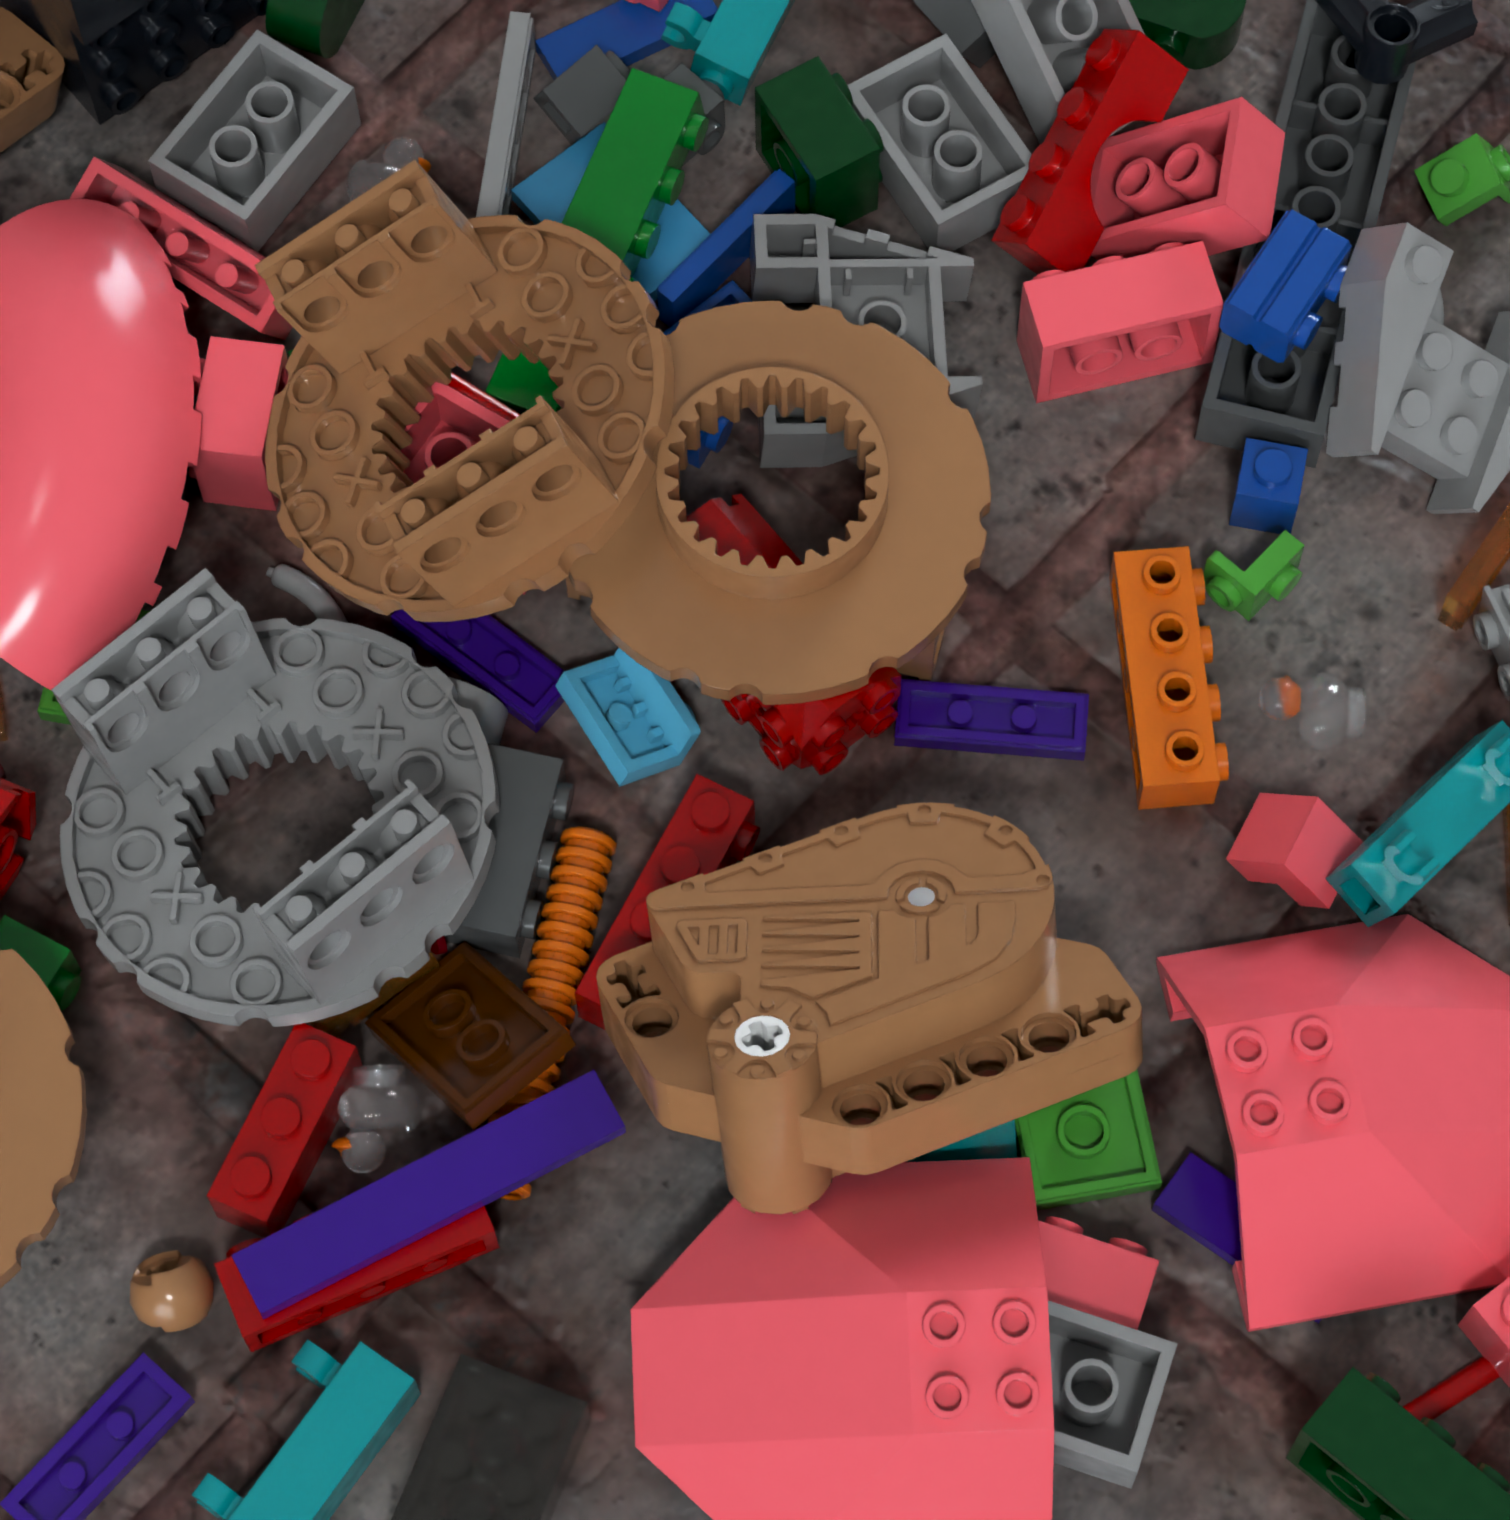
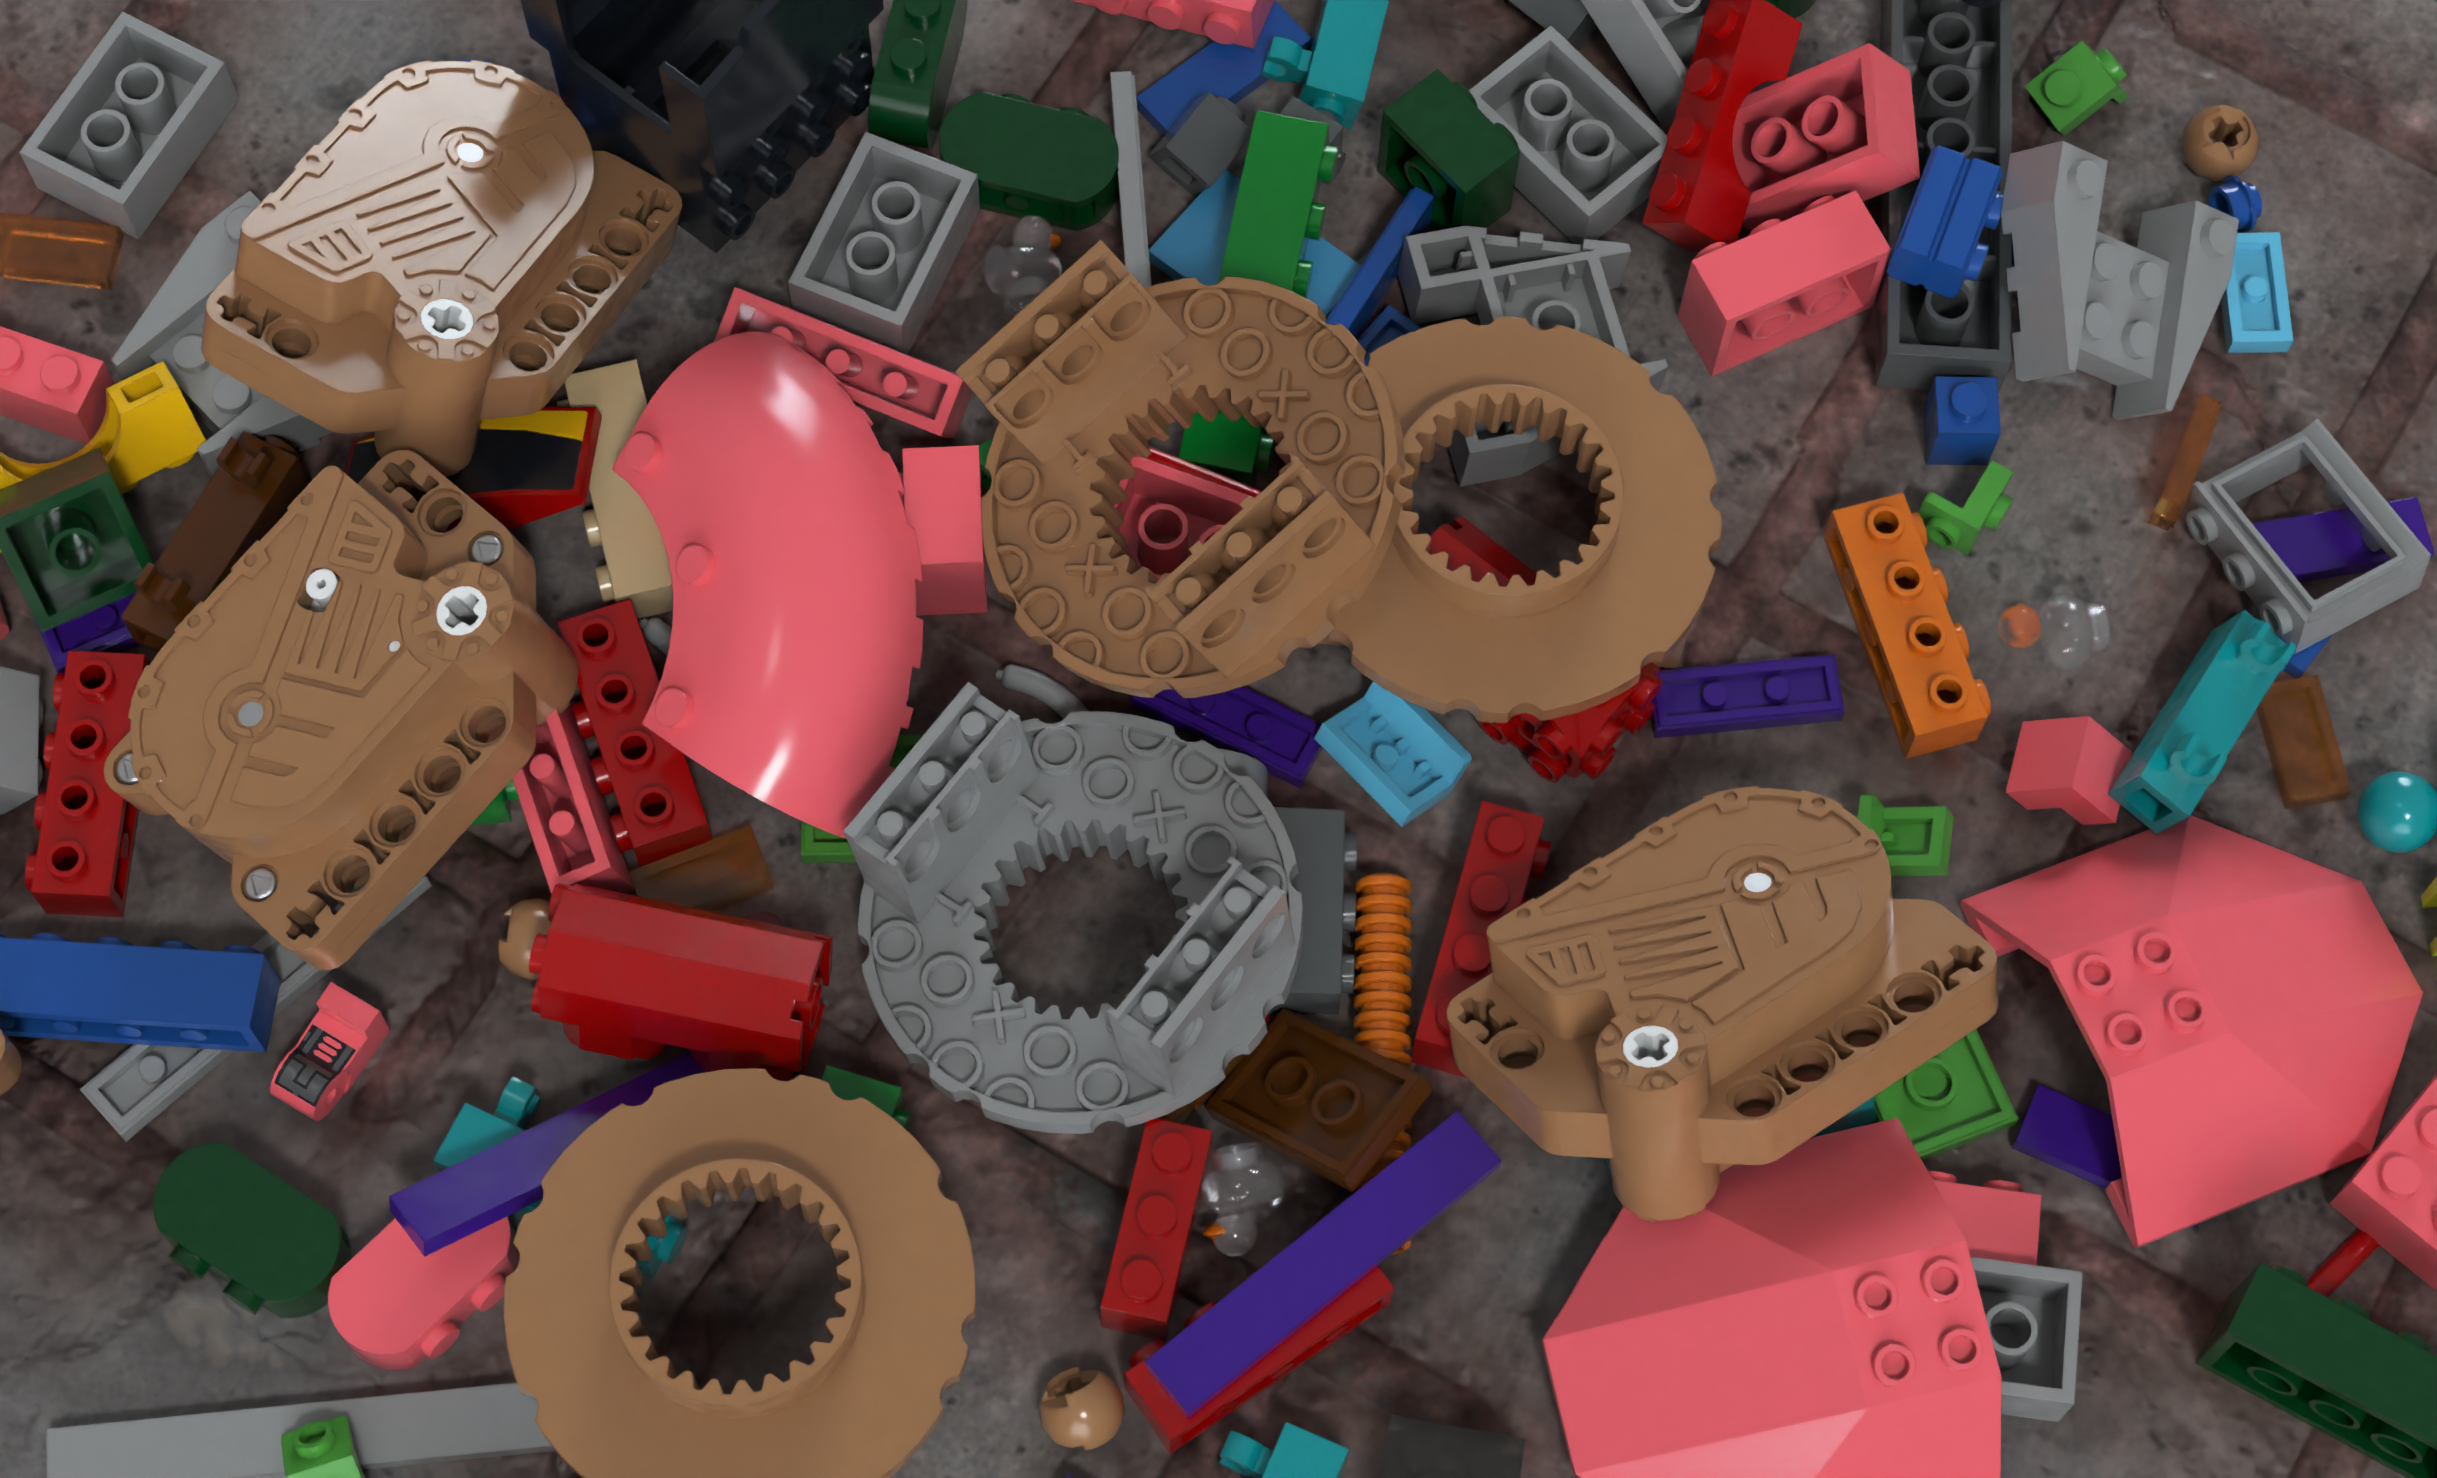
camera: 15 degrees left, 0 degrees up
(418, 82) = (1034, 158): none -> dark green brick
(1109, 885) = (1913, 837): none -> bright green bracket

